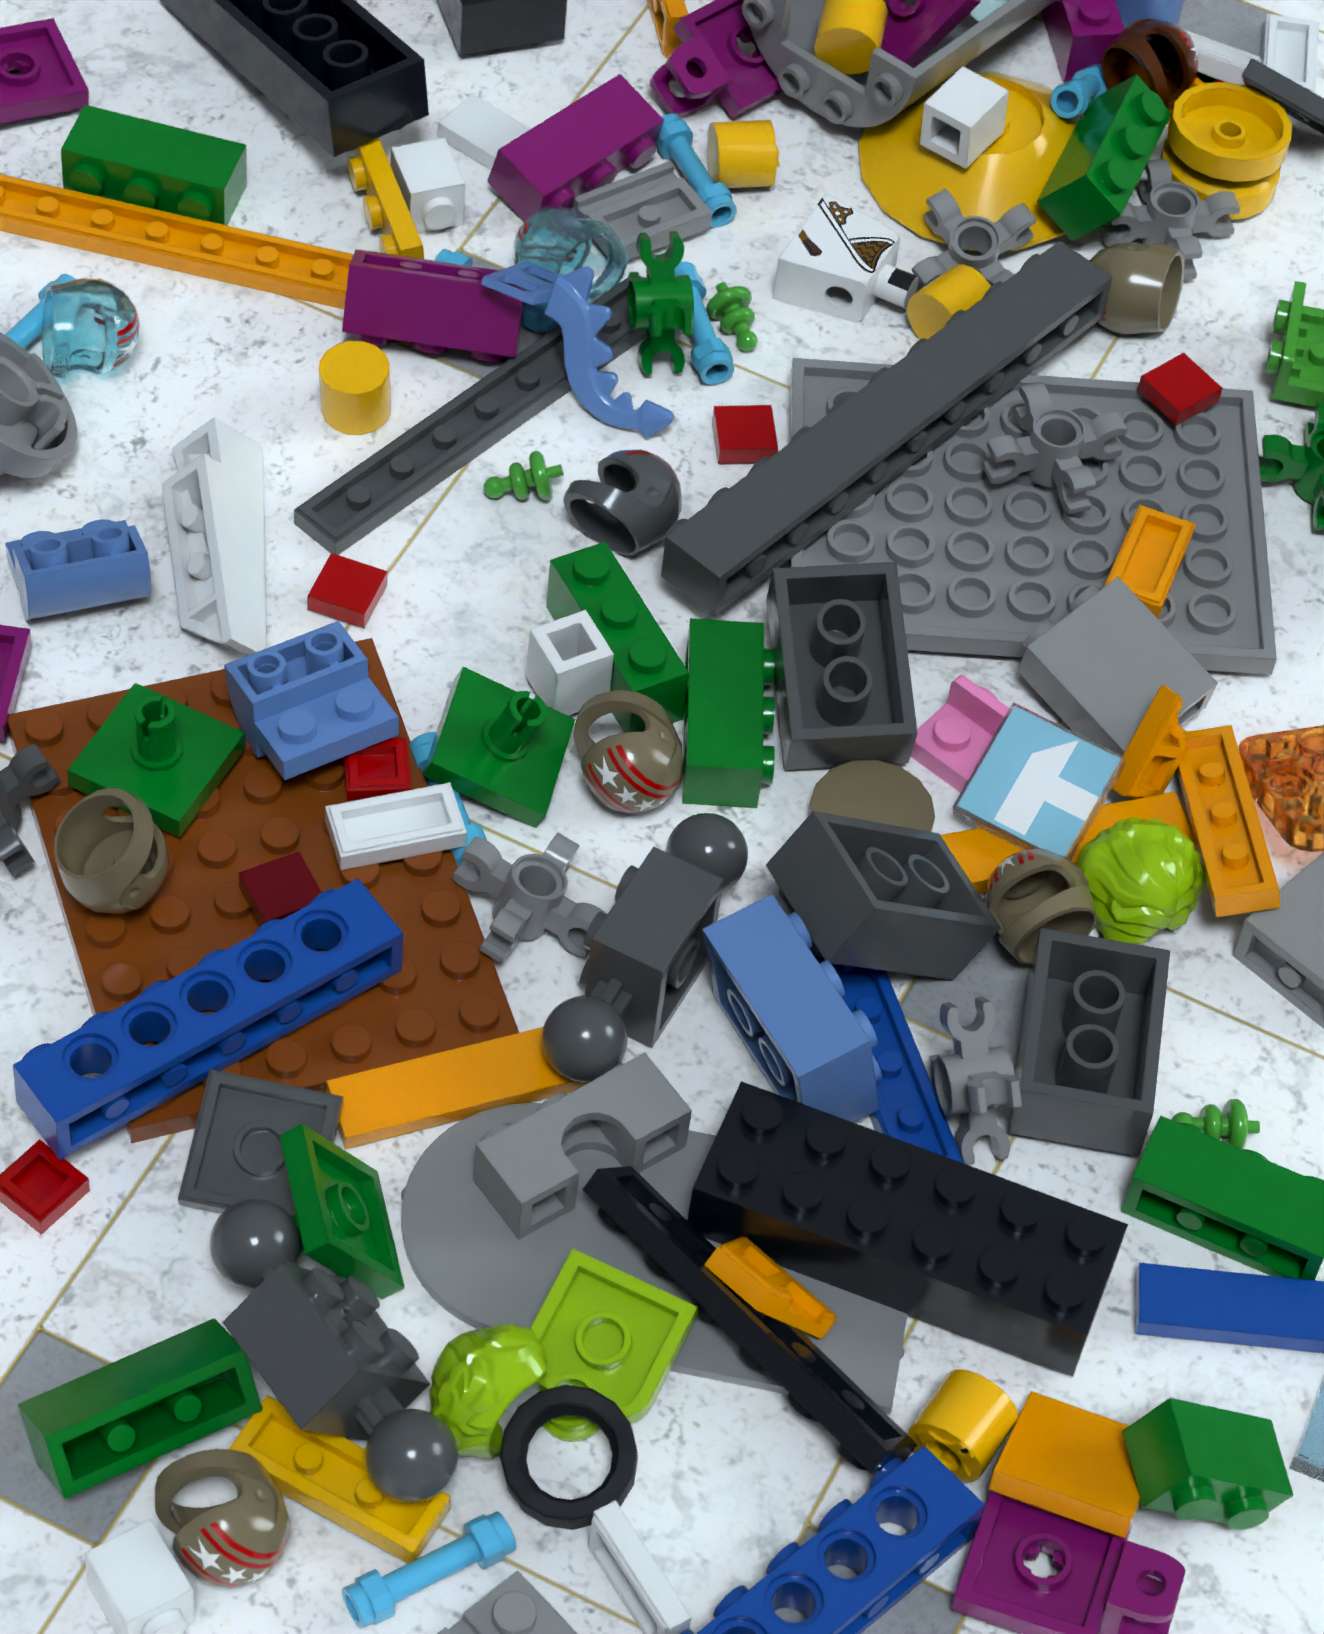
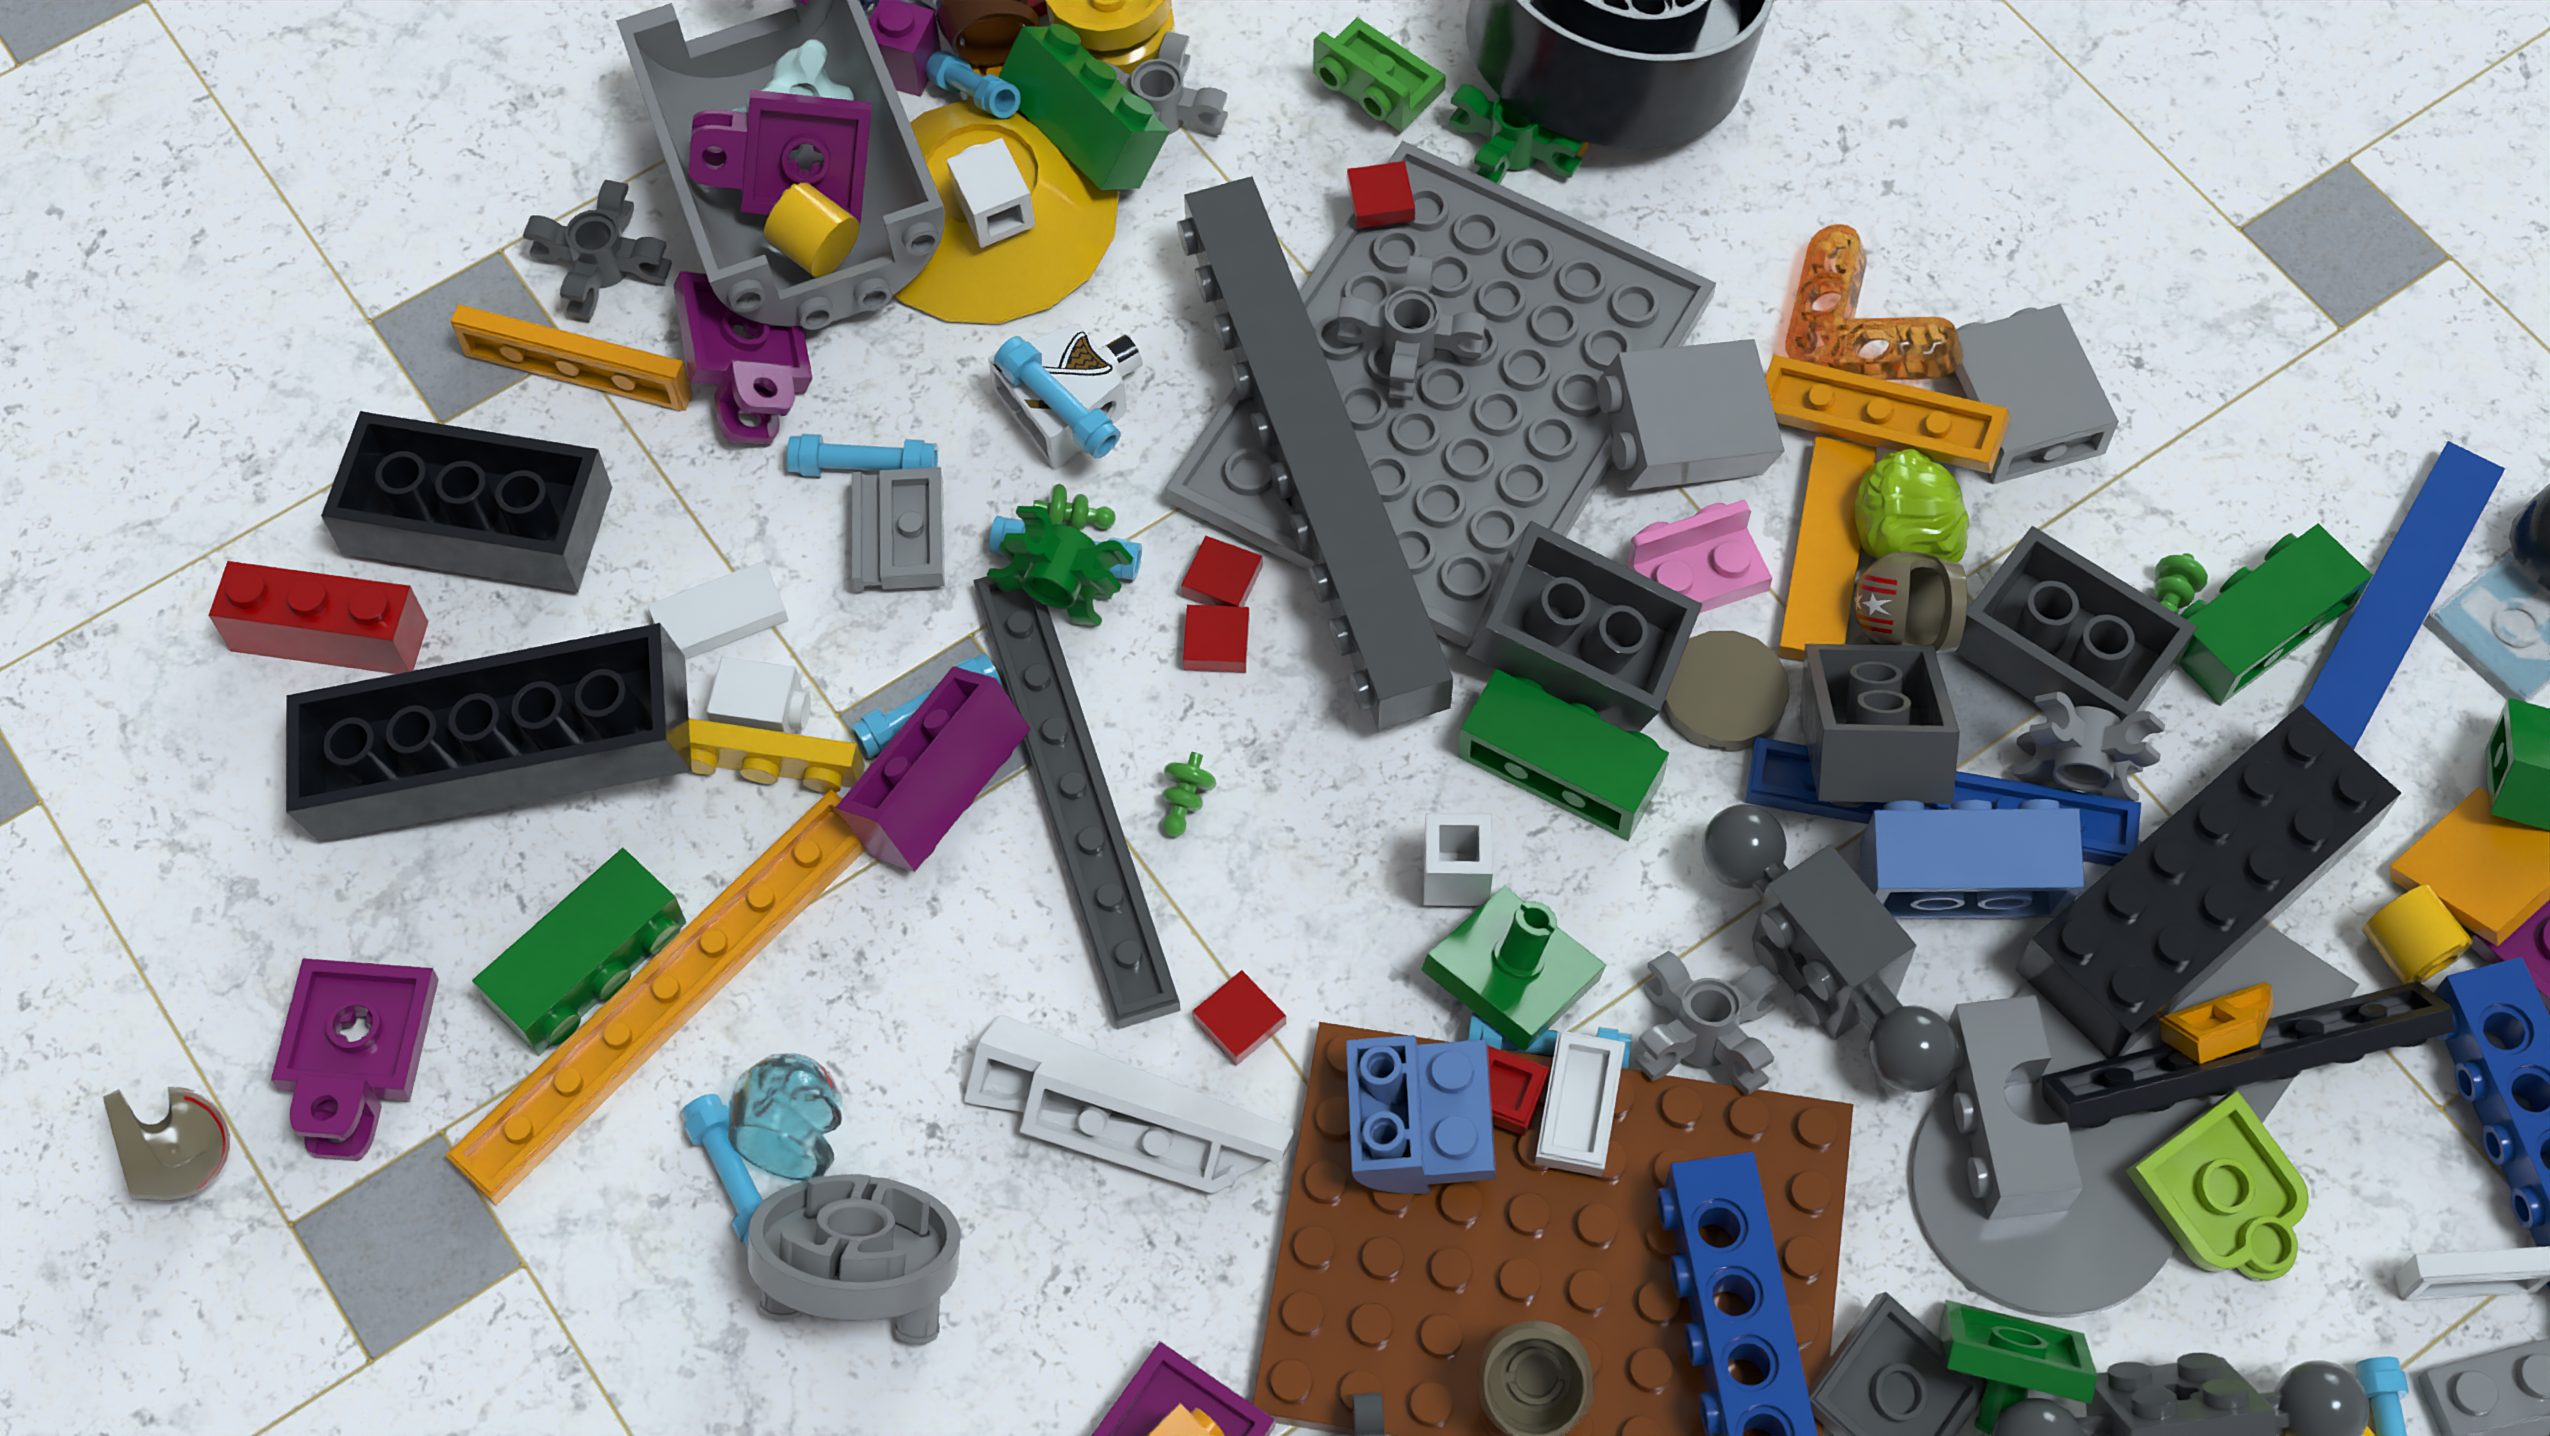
camera: 55 degrees left, 10 degrees up
(79, 568) = (1097, 1259): medium blue brick -> none
(159, 754) = (1397, 1288): green tile -> none
(278, 887) = (1617, 1242): dark red tile -> none
(355, 387) = (995, 892): yellow piece -> none
(445, 1087) = (1878, 1188): light orange tile -> none
(478, 1381) = (2257, 1306): lime hair -> none
(553, 1404) = (2387, 1262): black tyre -> none
(561, 242) = (928, 621): clear light blue helmet -> none
(577, 149) = (794, 547): magenta brick -> none
(581, 347) = (1053, 650): medium blue piece -> none
(630, 768) = (1590, 858): dark tan helmet -> none
(631, 504) = (1279, 712): dark grey helmet -> none
(642, 653) = (1388, 799): green brick -> none
(686, 449) = (1216, 638): none -> red tile
(742, 153) = (878, 403): yellow piece -> none
(802, 271) = (1023, 364): none -> medium azure bar
(943, 297) = (1175, 326): yellow piece -> none
(972, 233) = (1069, 274): light grey pin -> none
(1038, 784) = (1787, 537): tile -> none
(1143, 286) = (1232, 153): dark tan helmet -> none
(1152, 555) = (1567, 323): light orange tile -> none
(1154, 749) = (1791, 428): light orange tile -> none

